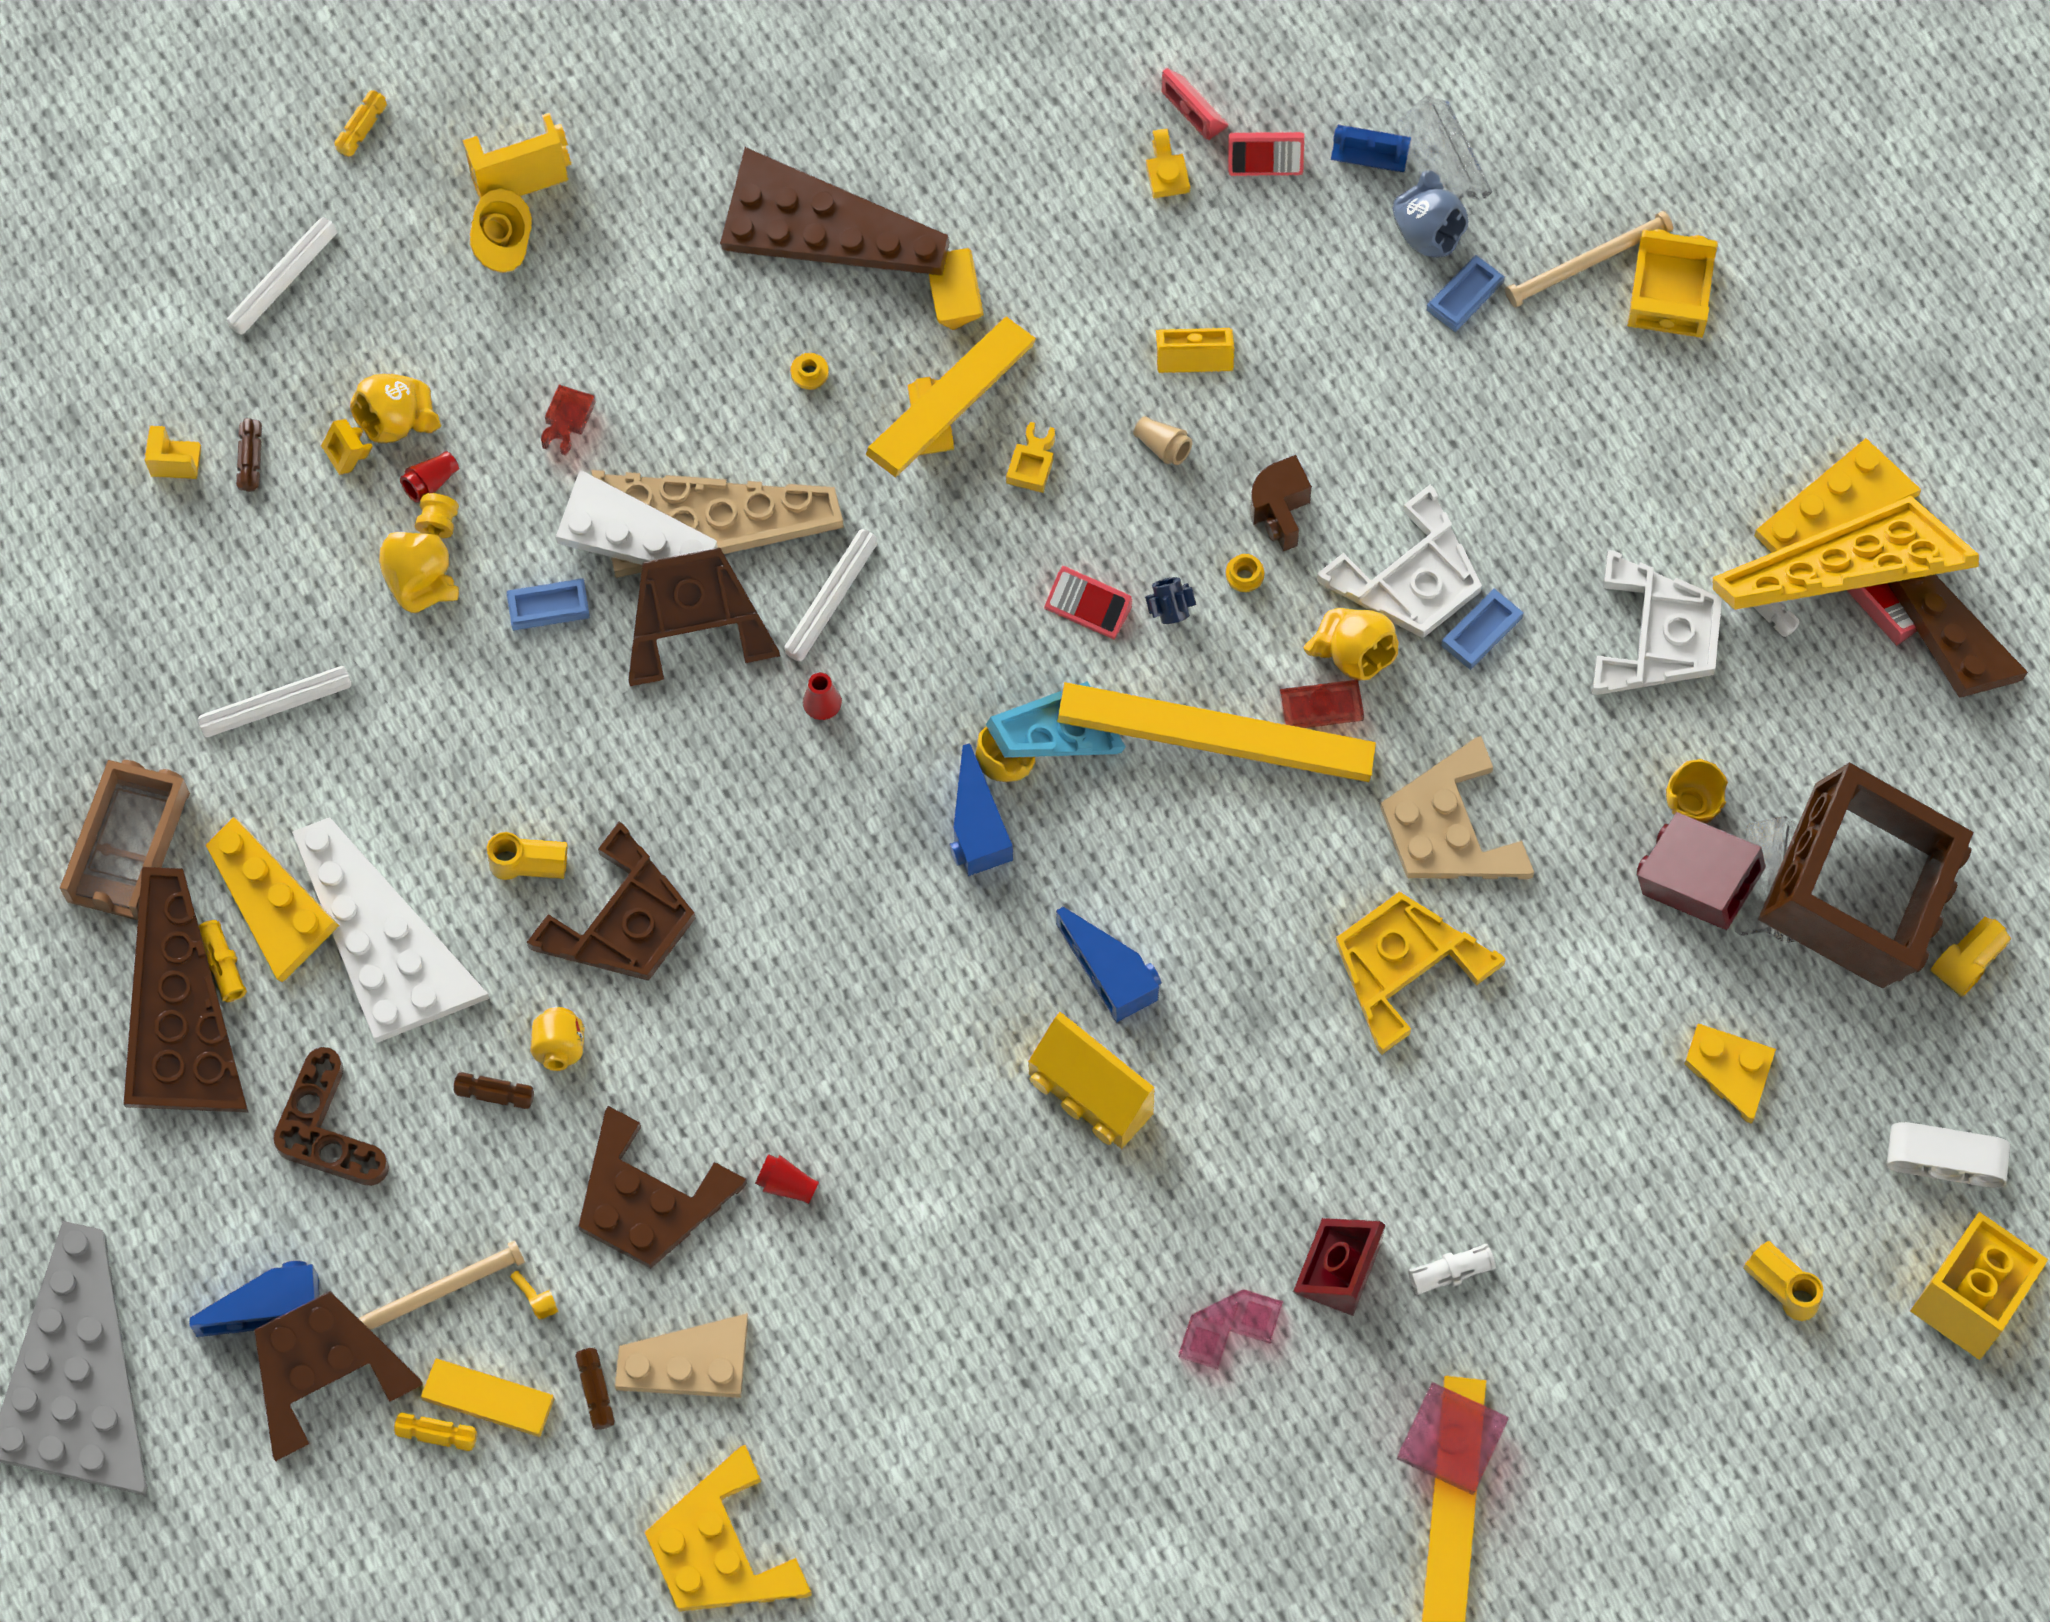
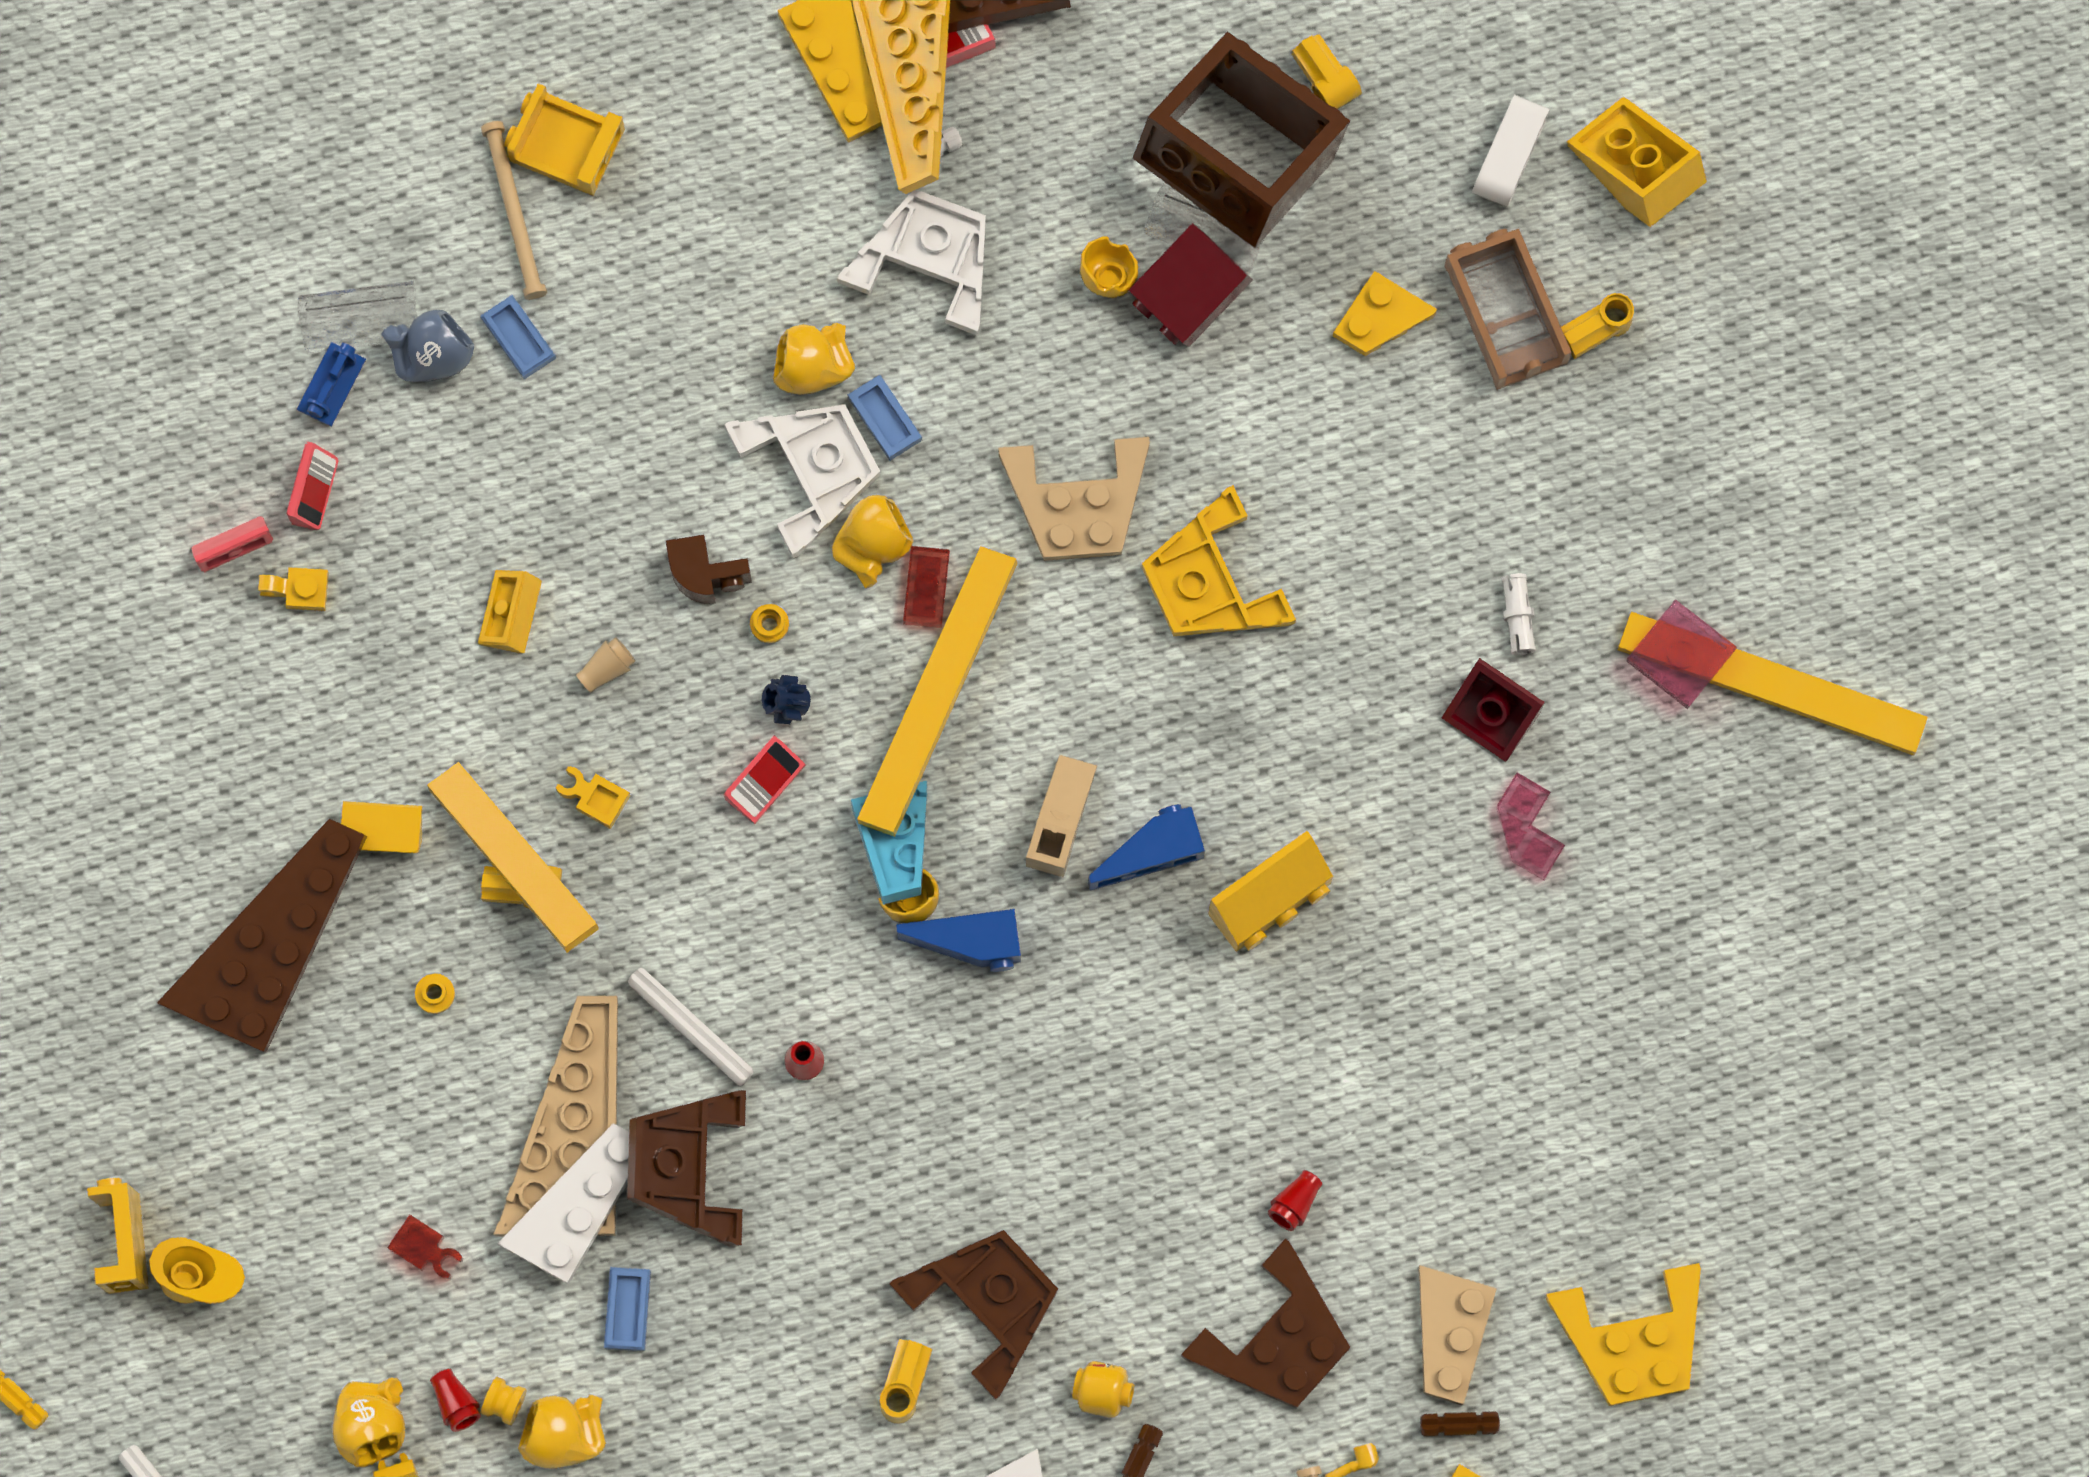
camera: 80 degrees left, 10 degrees up
(1119, 872) = (1060, 816): none -> tan slope
(1518, 546) = (812, 359): none -> yellow piece
(1775, 1185) = (1507, 307): none -> door

